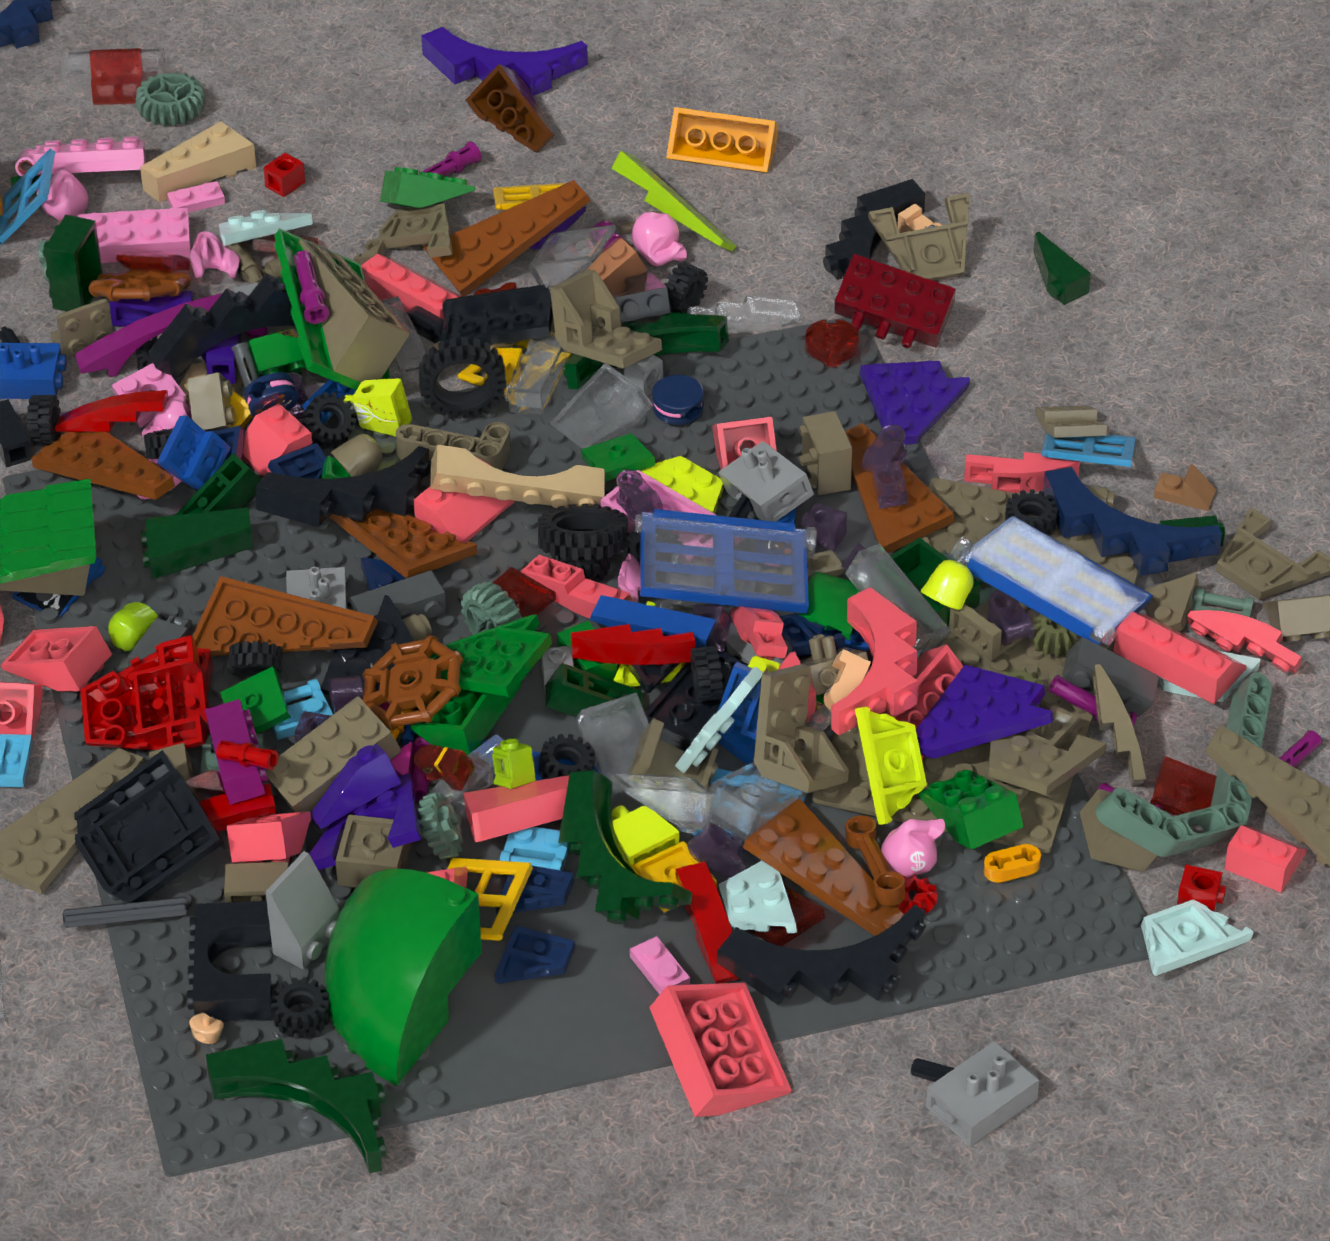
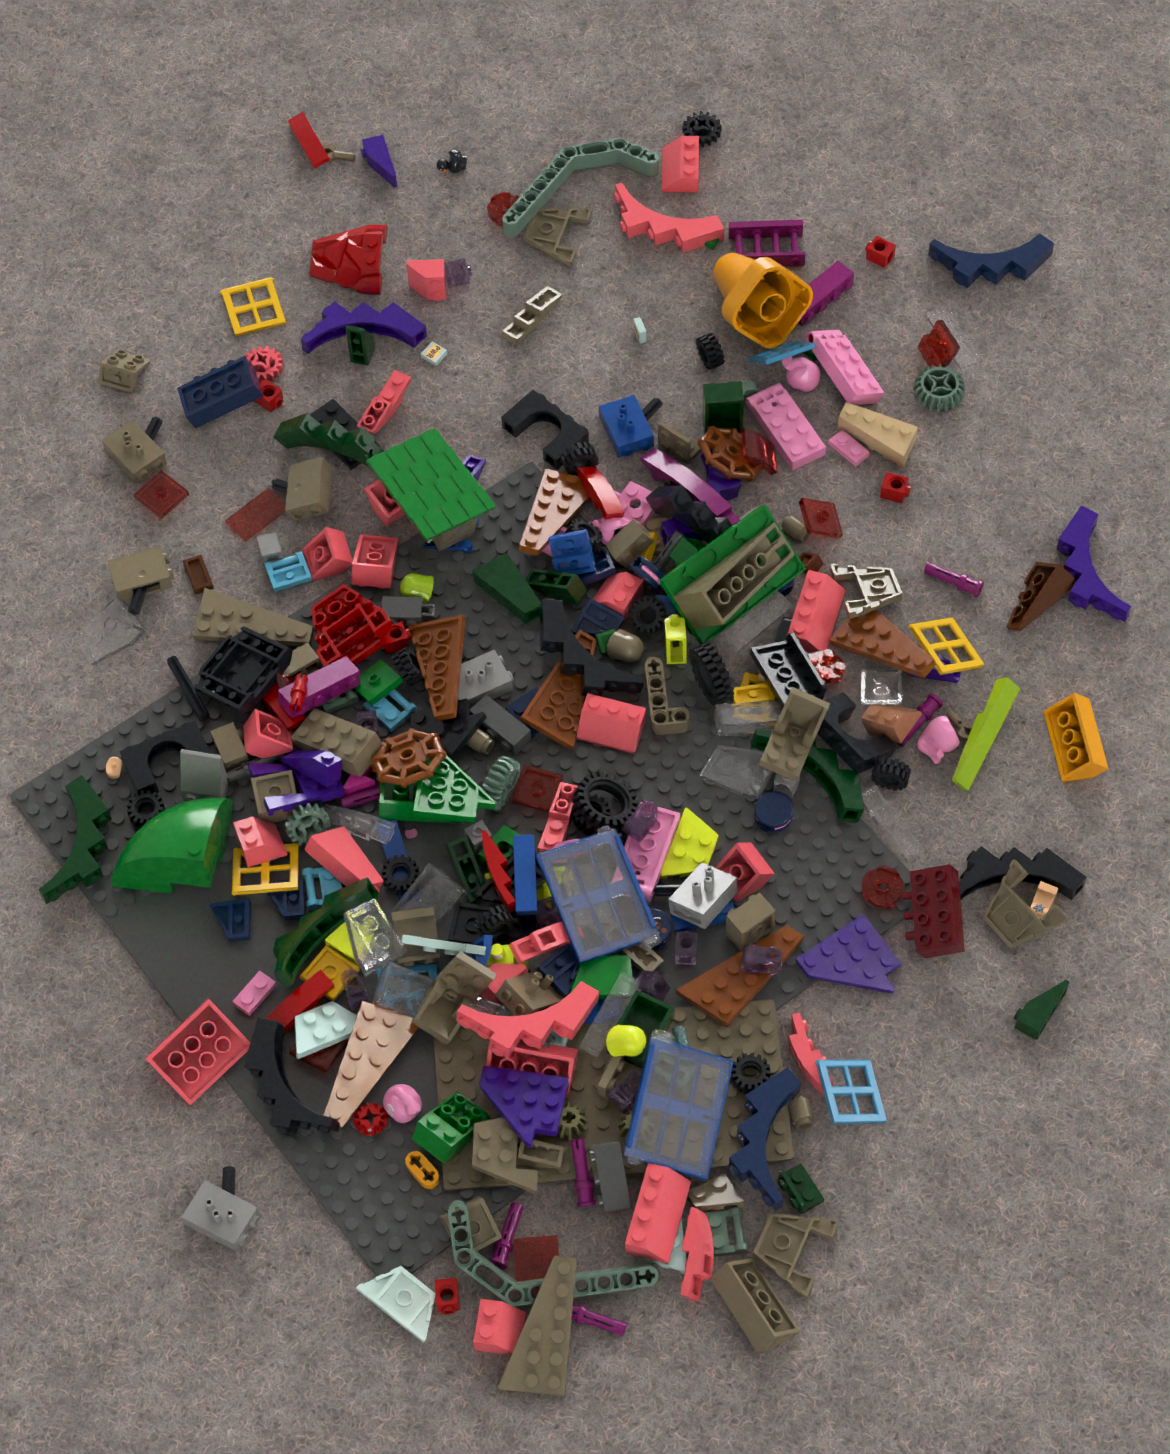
camera: 70 degrees right, 15 degrees up
(211, 253) = (791, 478): bright pink animal -> none
(249, 268) = (790, 508): dark tan pin -> none
(260, 225) = (825, 493): light aqua wing -> none
(312, 295) = (718, 552): magenta pin -> none
(344, 690) = (393, 725): clear purple piece -> none
(409, 189) = (913, 575): green slope -> none
(444, 764) = (354, 806): clear red leg -> none
(461, 472) = (612, 707): tan arch -> none
(513, 764) = (370, 843): lime window -> none
(618, 455) = (698, 797): green plate -> none
(851, 673) = (505, 1007): light nougat leg -> none
(875, 860) = (384, 1084): dark orange piece -> none
(889, 484) = (730, 964): clear purple brick -> none
(891, 761) = (458, 1061): neon yellow wing -> none
(1070, 421) = (877, 1071): dark tan slope -> none
(1114, 716) = (565, 1189): dark tan slope -> none
(1188, 491) = (844, 1171): medium nougat slope -> none

